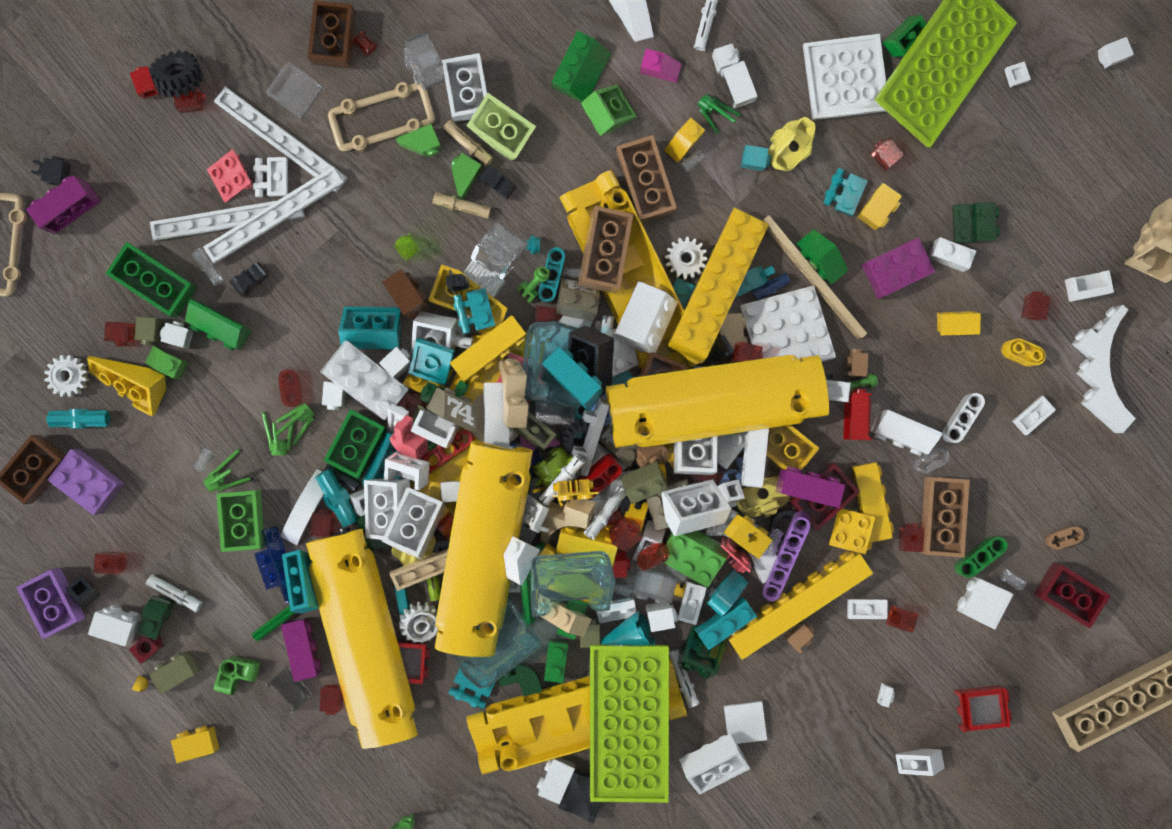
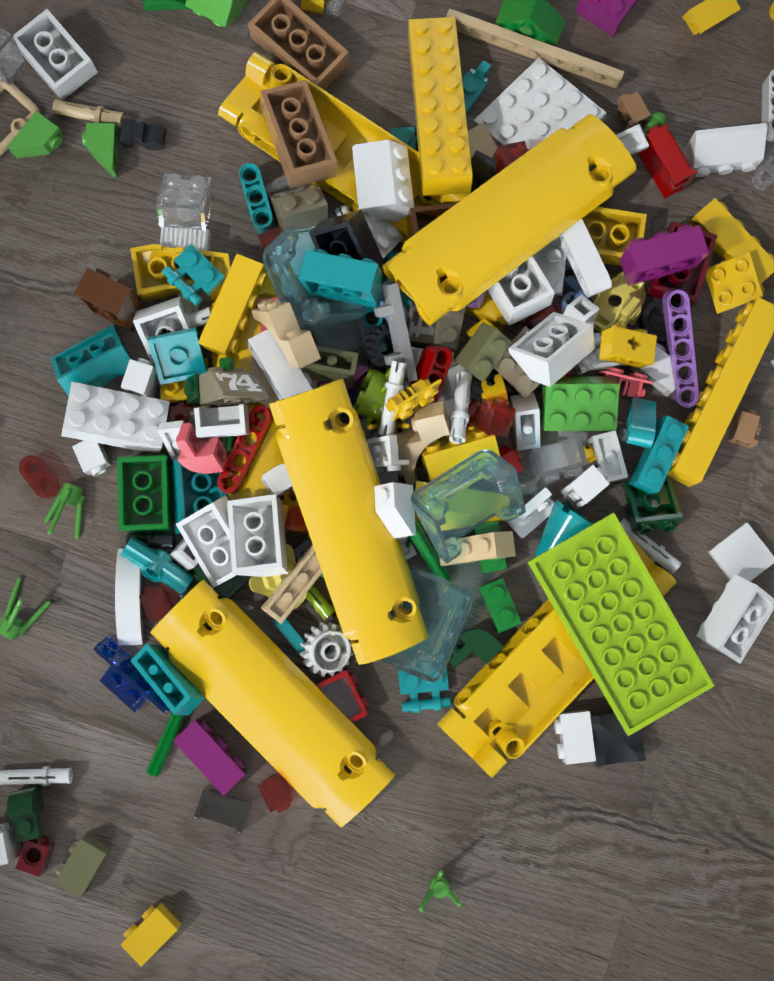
camera: 30 degrees left, 5 degrees down
(140, 684) = (51, 901): yellow hinge -> none
(228, 679) = (148, 839): bright green piece -> none
(240, 520) = (63, 650): bright green brick -> none
(277, 446) = (60, 546): bright green plant -> none
(406, 247) = (80, 253): clear neon green brick -> none
(408, 468) = (216, 483): white panel -> none
(455, 203) = (114, 181): tan pin -> none
(456, 282) = (157, 250): black hinge -> none
(500, 127) = (113, 72): yellowish green slope -> none
(533, 244) = (219, 178): teal plate -> none
(541, 275) = (244, 199): bright green hinge -> none
(592, 635) = (523, 555): olive brick -> none
(651, 454) = (471, 318): medium nougat brick -> none
(653, 556) = (538, 425): clear red plate -> none
(693, 251) = (388, 91): white gear -> none
(771, 287) = (495, 84): dark blue pin -> none
(776, 536) = (661, 346): clear pin -> none

